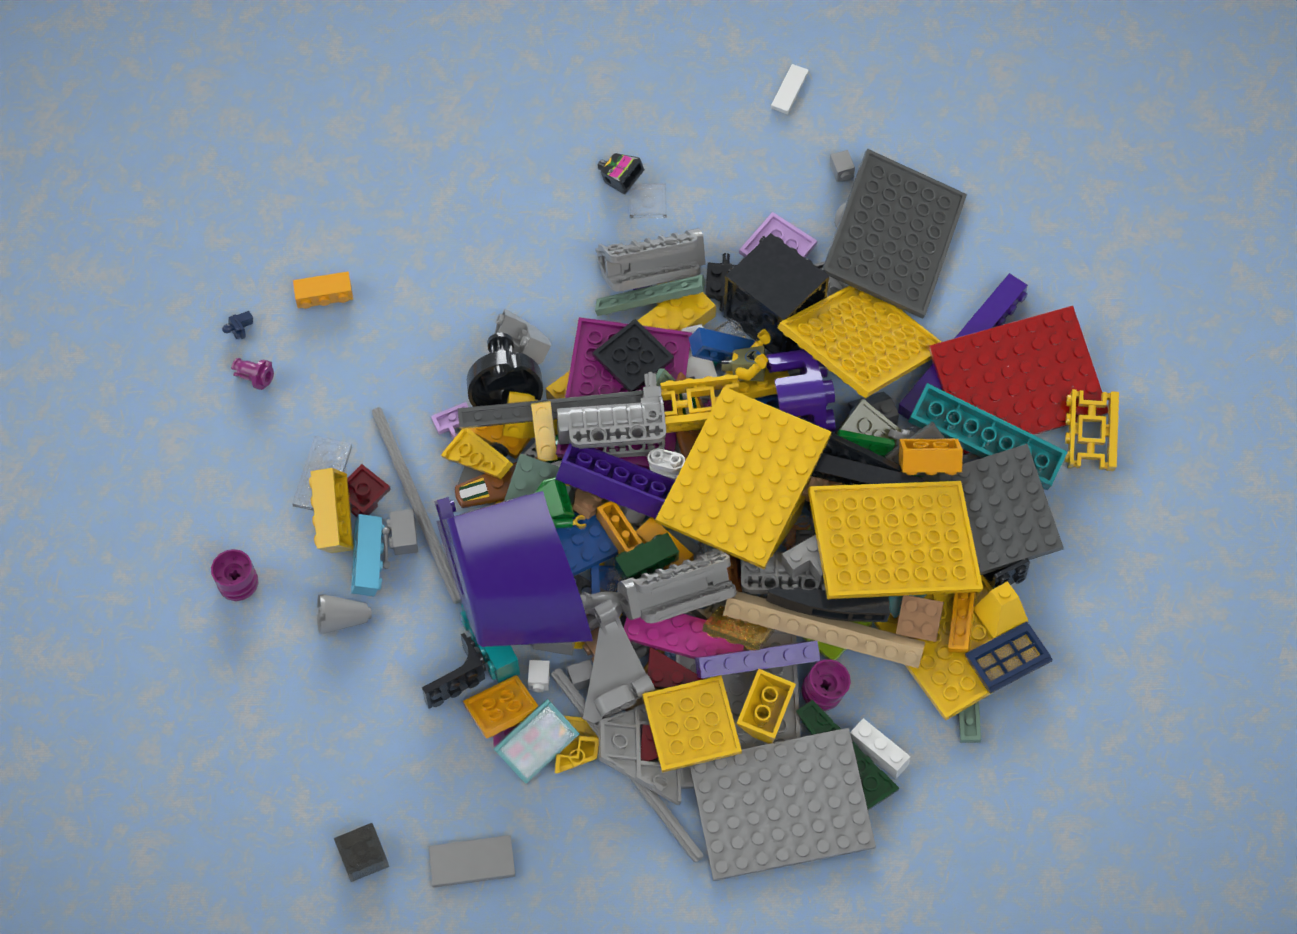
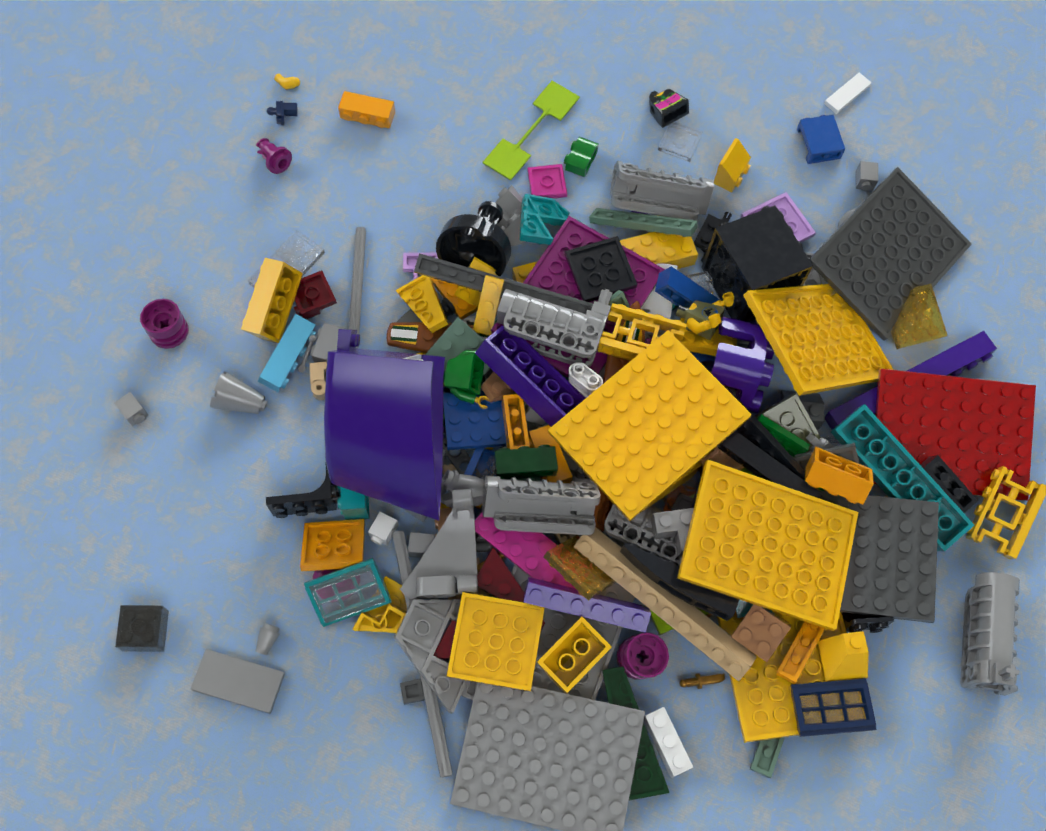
camera: 20 degrees right, 5 degrees up
(225, 294) = (287, 83): none -> yellow arm
(243, 667) = (131, 409): none -> light grey brick
(407, 565) = (318, 379): none -> tan leg
(480, 811) = (266, 638): none -> light grey cone
(488, 283) = (509, 157): none -> lime hinge
(536, 292) = (547, 181): none -> dark pink tile
(545, 325) = (536, 212): none -> teal wing
(559, 254) = (581, 156): none -> green brick
(634, 802) = (412, 691): none -> dark grey plate
(711, 207) = (733, 166): none -> yellow slope
(783, 145) = (821, 138): none -> blue panel
(885, 687) = (702, 680): none -> pearl gold piece
(946, 285) = (919, 319): none -> clear yellow plate
(1031, 423) = (949, 482): none -> black brick
(1118, 539) = (990, 634): none -> light grey piece

